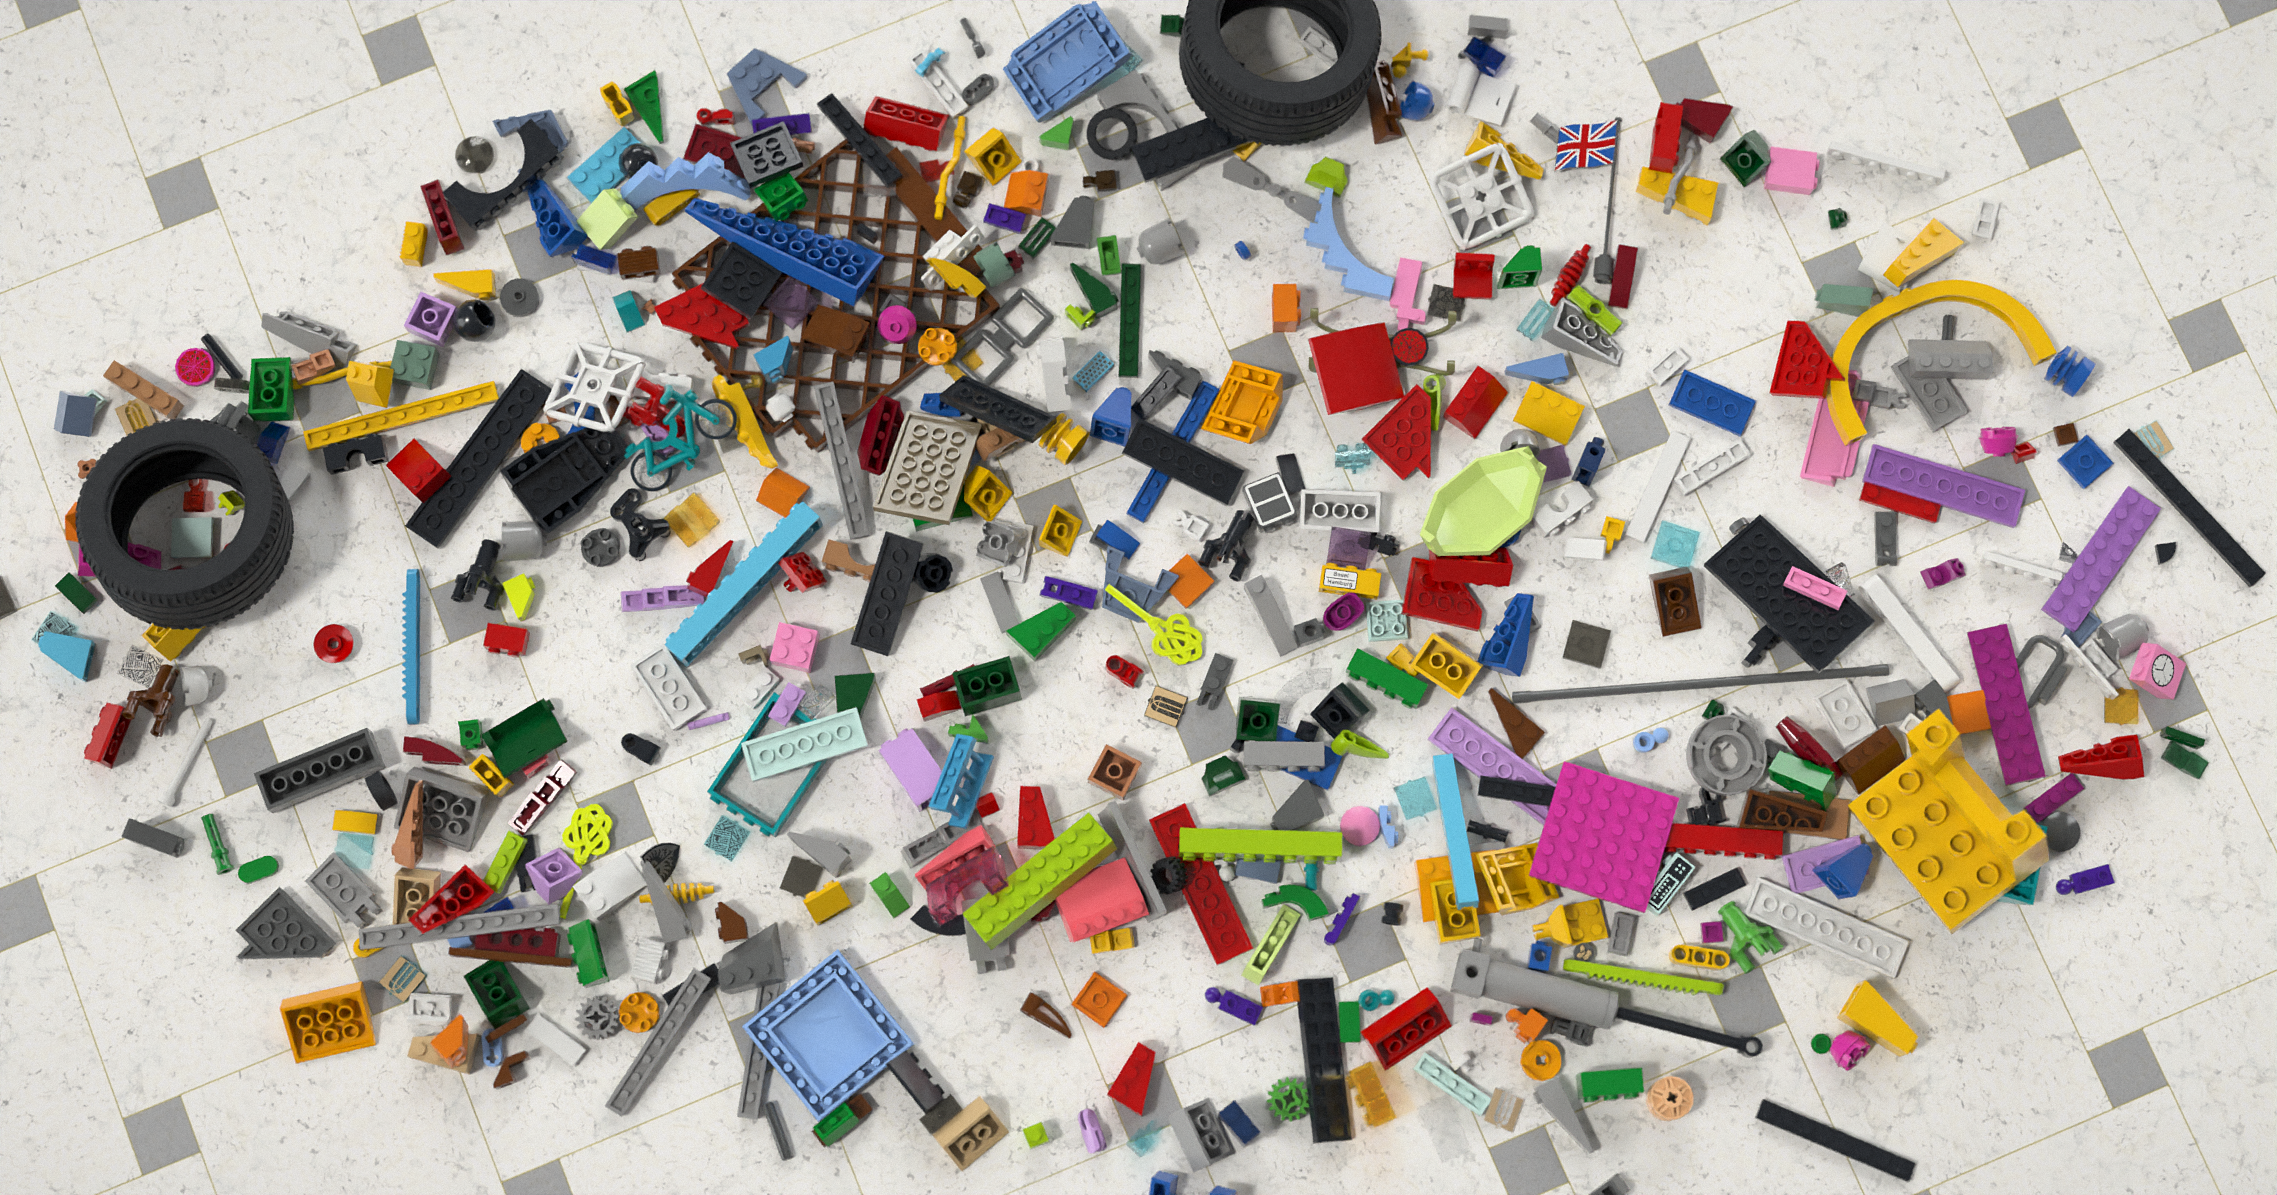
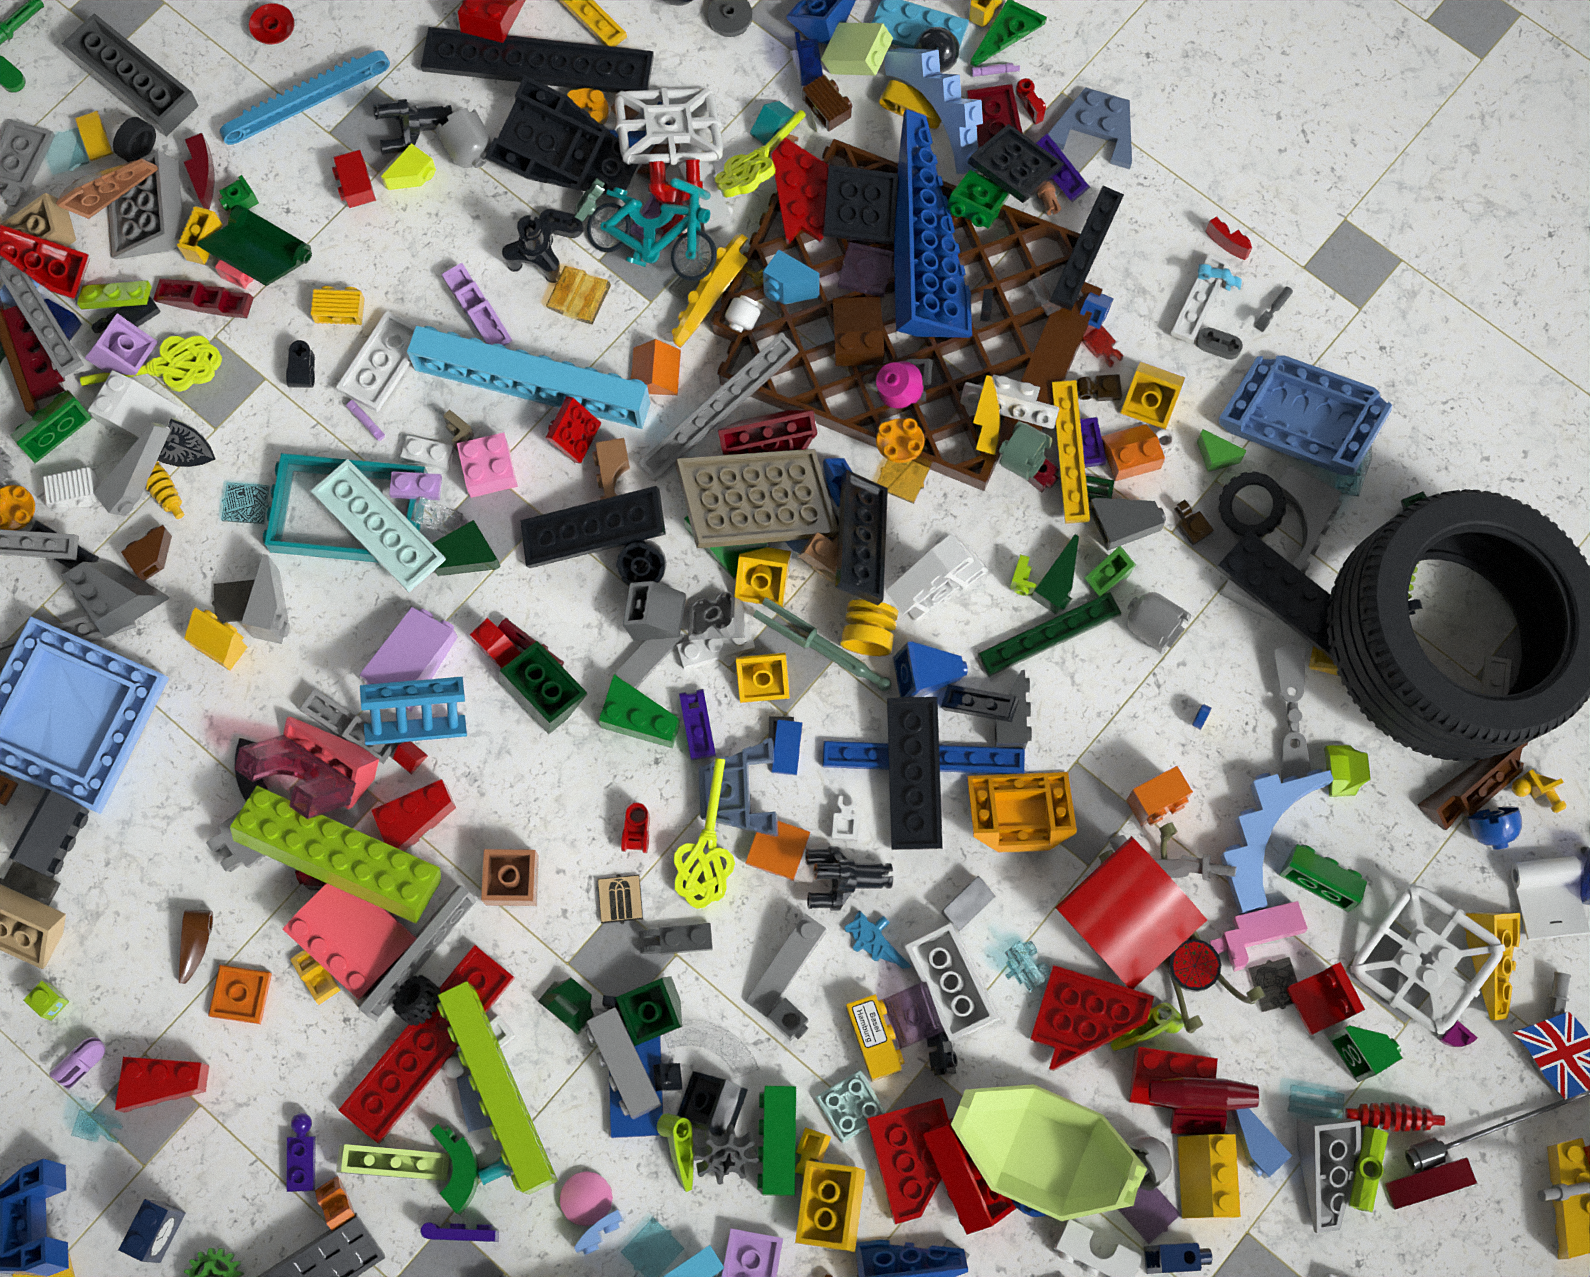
camera: 65 degrees right, 5 degrees down
(600, 547) = (500, 220): dark grey dish -> none
(605, 699) = (337, 306): none -> yellow brick
(622, 476) = (587, 203): none -> sand green plate
(666, 357) = (746, 172): none -> neon yellow piece
(674, 129) = (994, 69): none -> lavender wheel
(707, 573) = (527, 336): red slope -> none
(889, 895) = (256, 701): bright green slope -> none
(905, 123) = (1136, 287): red slope -> none
(909, 156) = (1099, 307): none -> blue brick
(910, 35) = (1234, 243): none -> red slope
(941, 199) = (1154, 350): yellow bar -> none
(973, 580) = (653, 611): none -> dark grey slope
(974, 730) = (486, 700): bright green slope -> none
(1003, 337) = (953, 508): dark grey bar -> none
(1008, 235) = (1070, 452): none -> yellow plate
(1055, 479) = (820, 644): none -> sand green piece
(1093, 371) = (968, 623): tile -> none
(1201, 1134) = (122, 1189): light grey slope -> none
(1269, 503) = (919, 897): dark grey brick -> none
(1280, 551) = (870, 938): none -> dark azure piece
(1298, 810) = (567, 1113): dark grey slope -> none
(1338, 322) = (1182, 867): none -> light grey sword
(1343, 612) = (832, 1048): magenta piece -> none
(1379, 716) = (725, 1154): none -> dark grey gear
(1393, 231) = (1324, 877): none -> green slope
(1501, 391) = (1202, 1102): none -> dark red plate
(1539, 206) = (1458, 1036): none -> magenta tile

